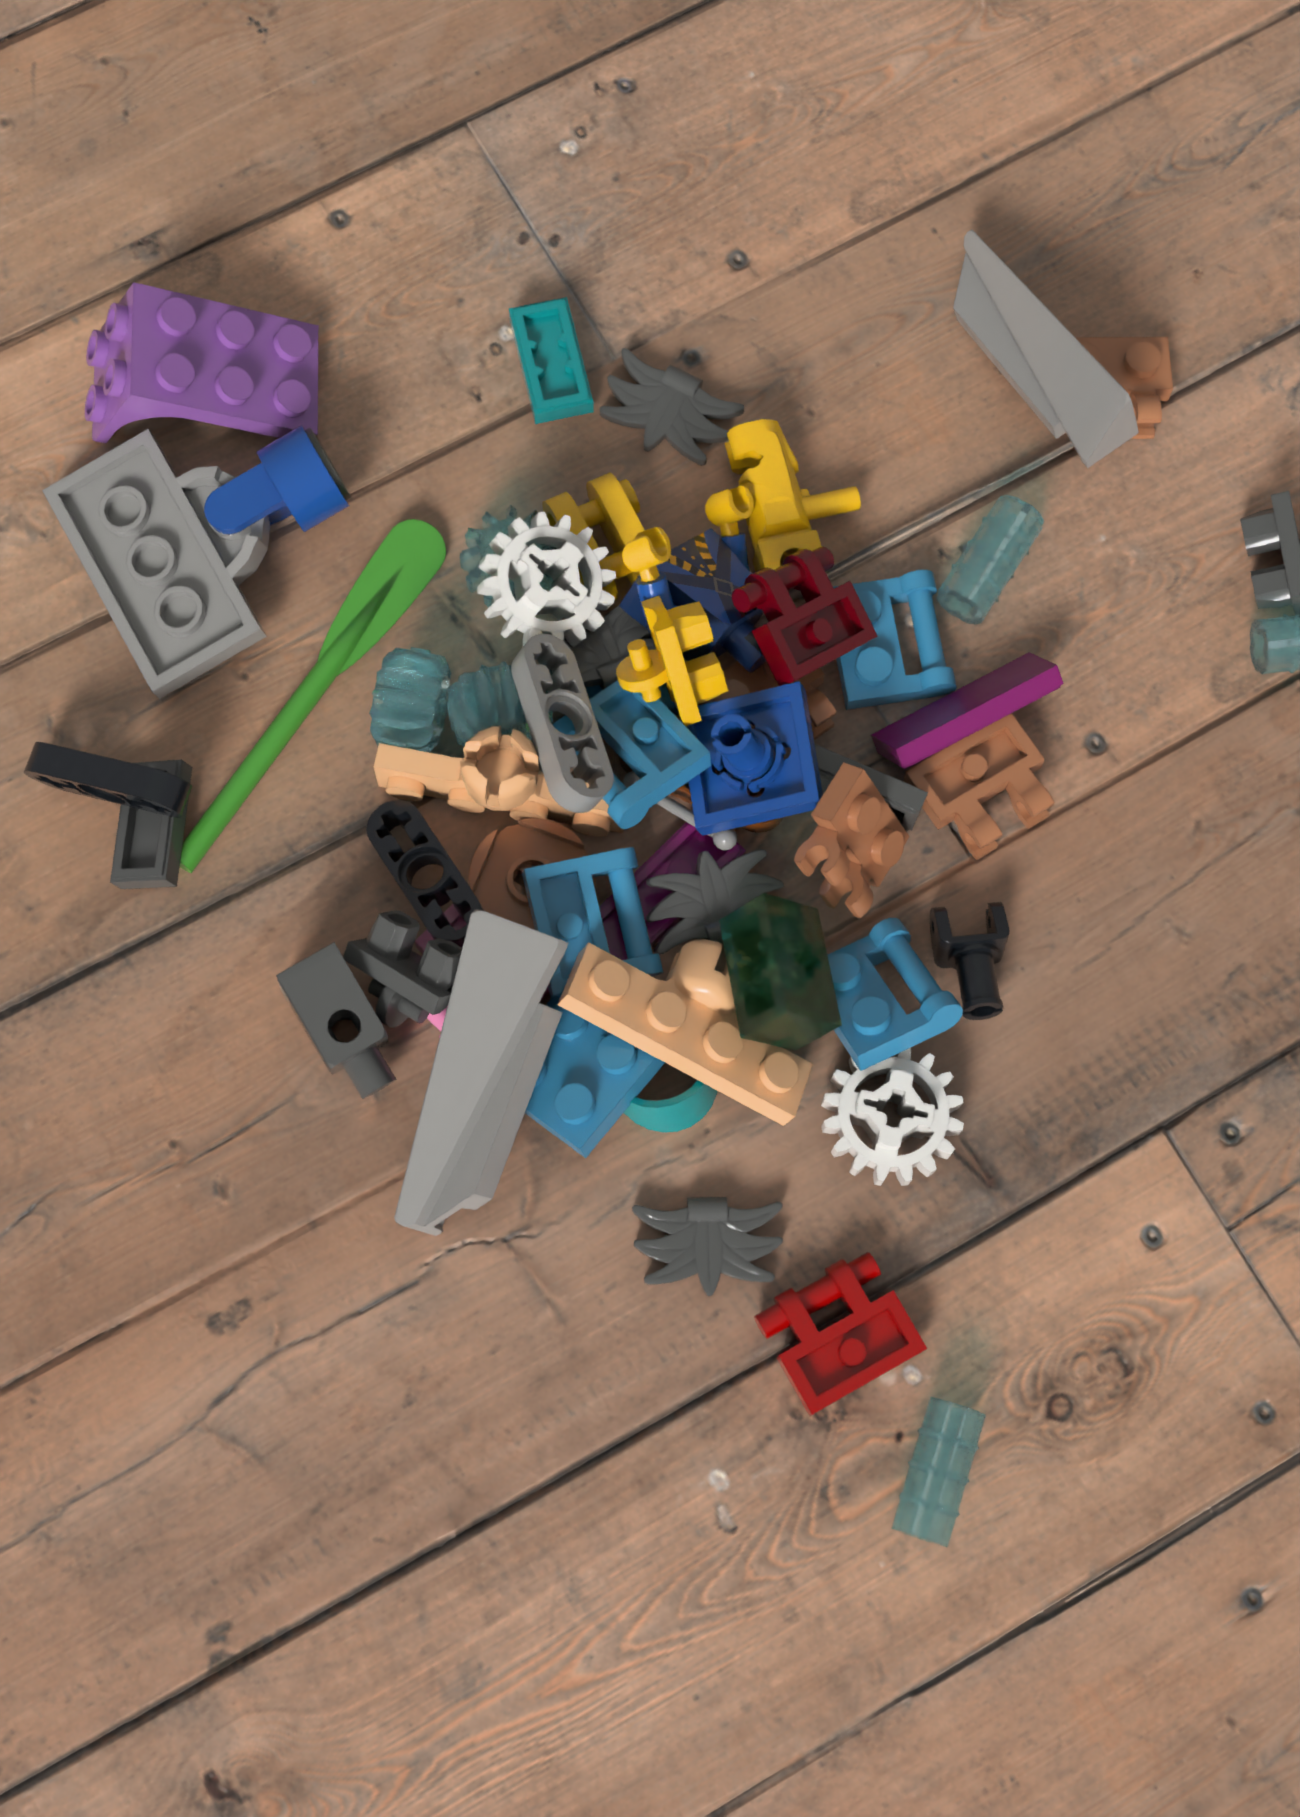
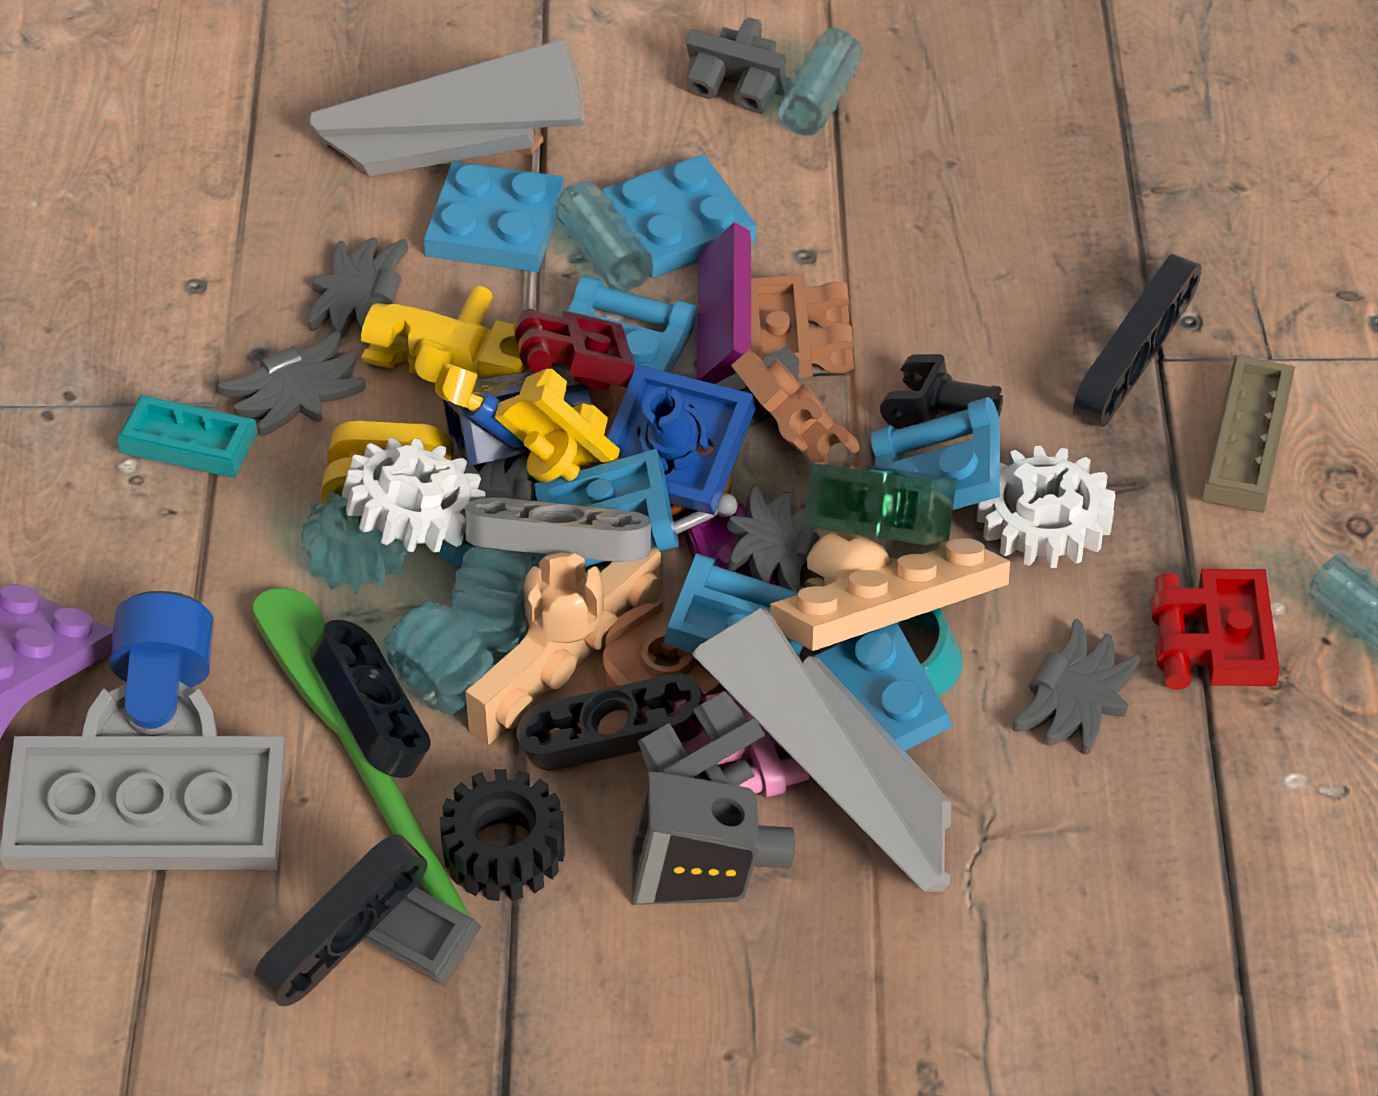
camera: 55 degrees left, 25 degrees down
(271, 815) = (508, 865): none -> black tyre
(313, 693) = (385, 730): none -> black beam
(812, 391) = (356, 284): none -> dark grey piece
(967, 452) = (494, 216): none -> dark azure plate
(1069, 606) = (678, 211): none -> dark azure plate
(1102, 1255) = (1248, 434): none -> dark tan plate
(1158, 1098) = (1137, 340): none -> black beam

